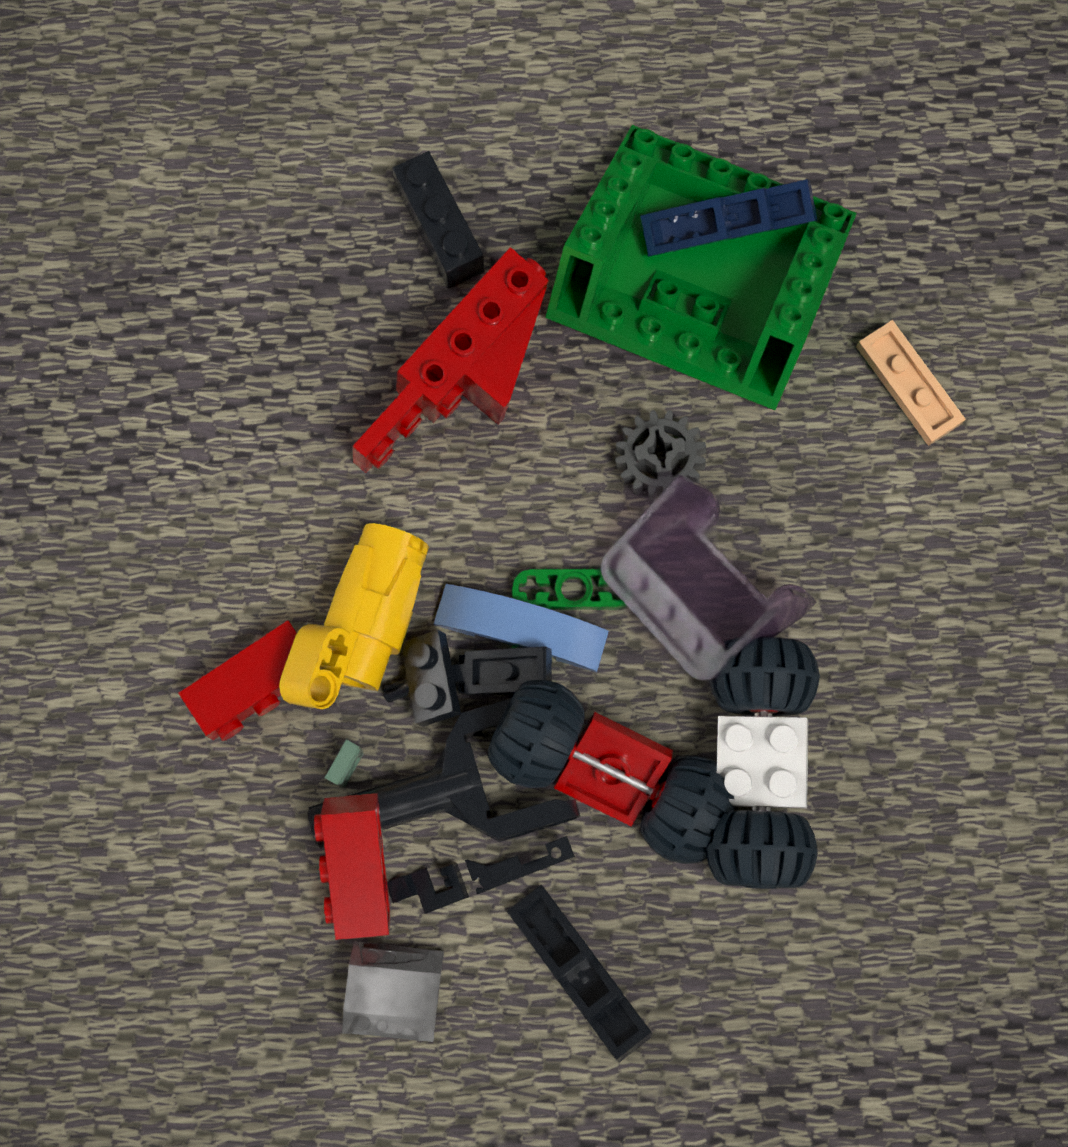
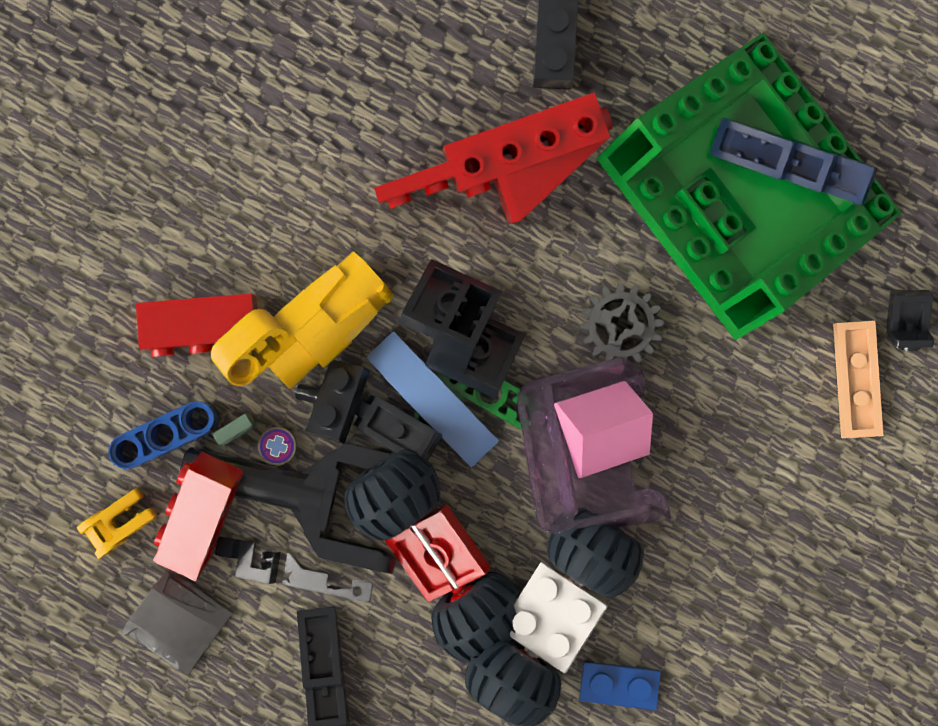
camera: 35 degrees right, 10 degrees up
(257, 819) = (146, 435): none -> blue beam
(262, 927) = (102, 527): none -> yellow piece
(395, 758) = (277, 446): none -> tile
(501, 524) = (458, 316): none -> black bracket
(704, 554) = (605, 428): none -> bright pink slope
(865, 800) = (619, 685): none -> blue plate
(923, 301) = (910, 319): none -> black bracket

